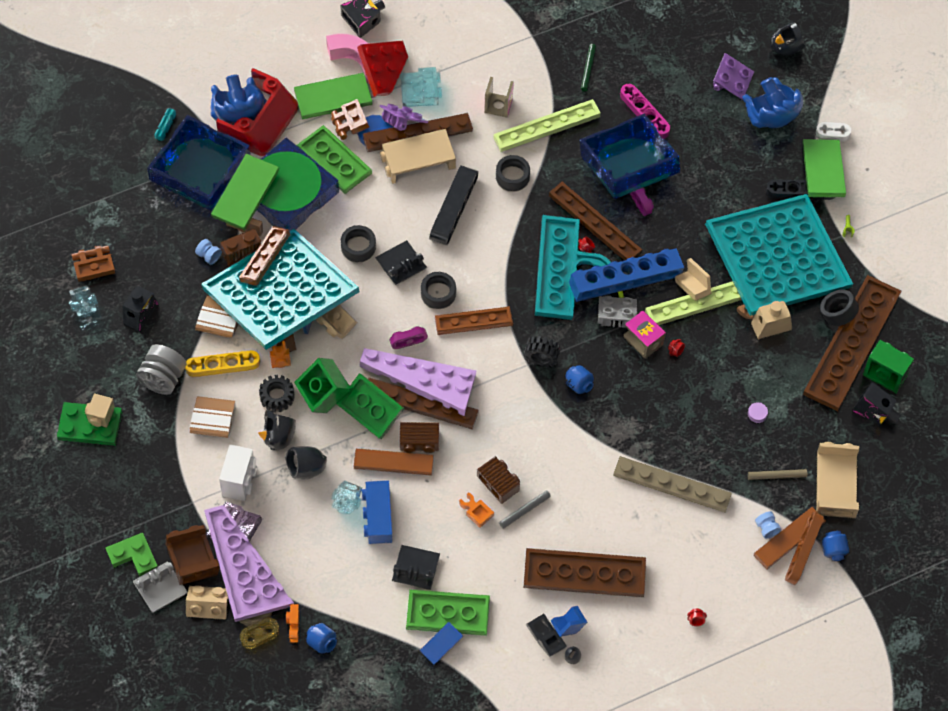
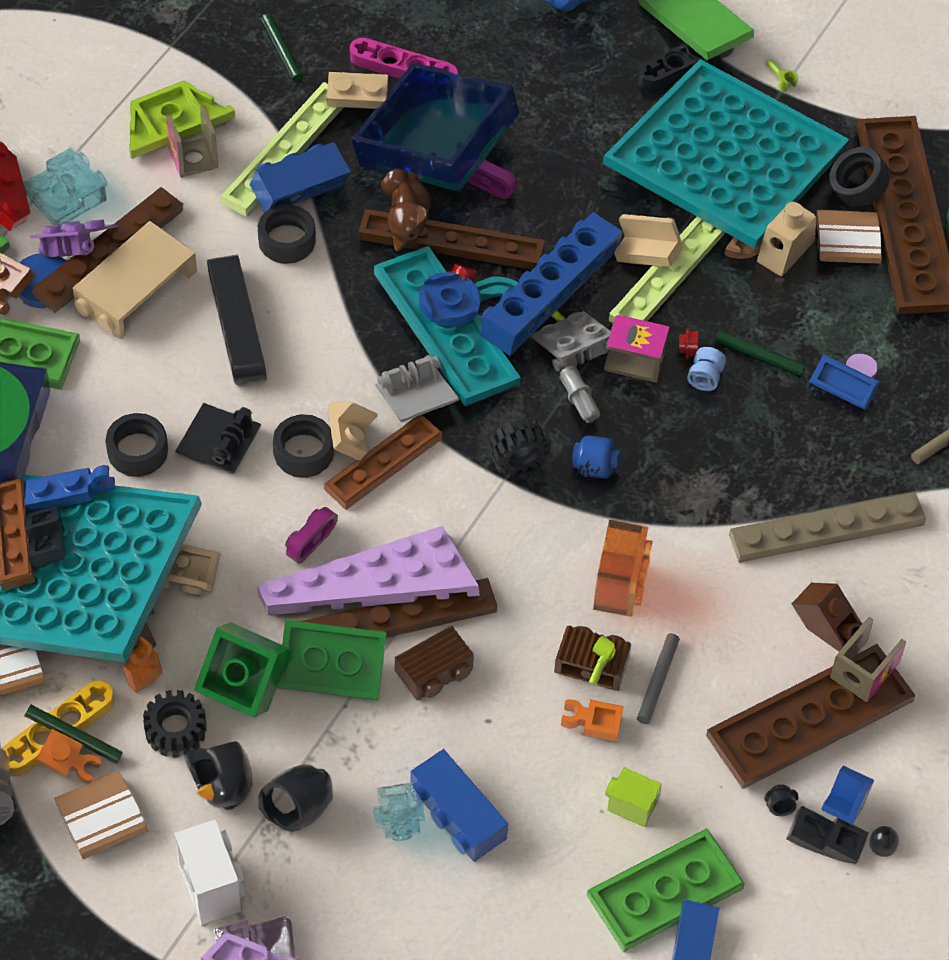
camera: 35 degrees left, 5 degrees down
(213, 378) = (62, 754): none -> orange plate
(225, 370) = (88, 741): none -> dark green bar
(277, 265) = (45, 536): none -> black slope
(303, 247) = (67, 488): none -> blue plate
(393, 461) = (421, 721): dark orange tile -> none
(415, 567) = (571, 852): black hinge -> none
(464, 294) = (348, 427): none -> tan slope
(465, 558) = (633, 796): none -> lime brick
(502, 480) = (606, 650): none -> lime hand
(503, 73) = (180, 101): none -> lime wing
(515, 293) = (417, 390): none -> light grey hinge
(536, 604) = (781, 800): none -> black plate
(539, 145) = (300, 176): none -> blue brick
(543, 443) = (622, 568): none -> clear orange brick
(566, 254) = (449, 299): none -> blue tile
(587, 189) = (410, 206): none -> reddish brown animal
(597, 342) = (579, 394): none -> light grey axle
(605, 113) = (356, 90): none -> tan bracket
(632, 571) = (869, 682): none -> dark tan piece
(633, 530) = (827, 613): none -> reddish brown slope
(673, 366) = (707, 366): none -> light blue wheel
(710, 372) = (760, 353): none -> dark green bar
(741, 414) = (844, 382): none -> blue tile
(809, 337) = (848, 236): none -> slope

